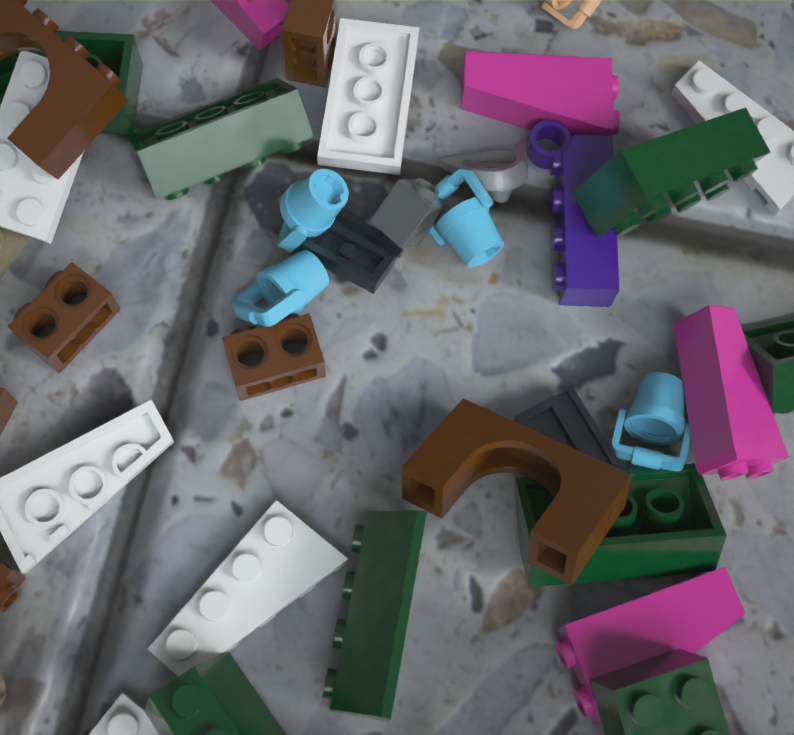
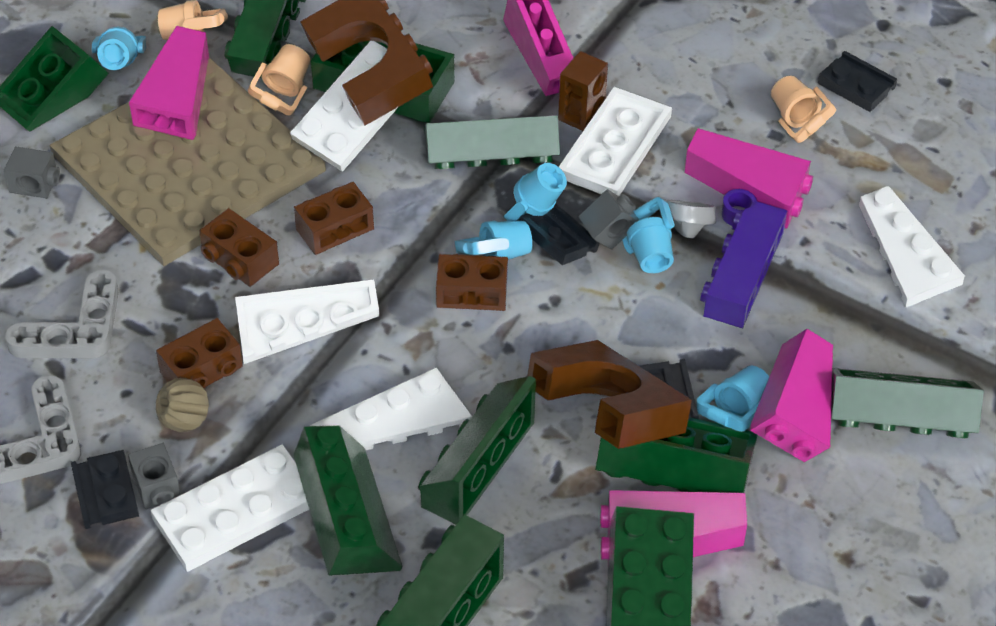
camera: 25 degrees right, 20 degrees down
(671, 173) = (815, 237): dark green brick -> none

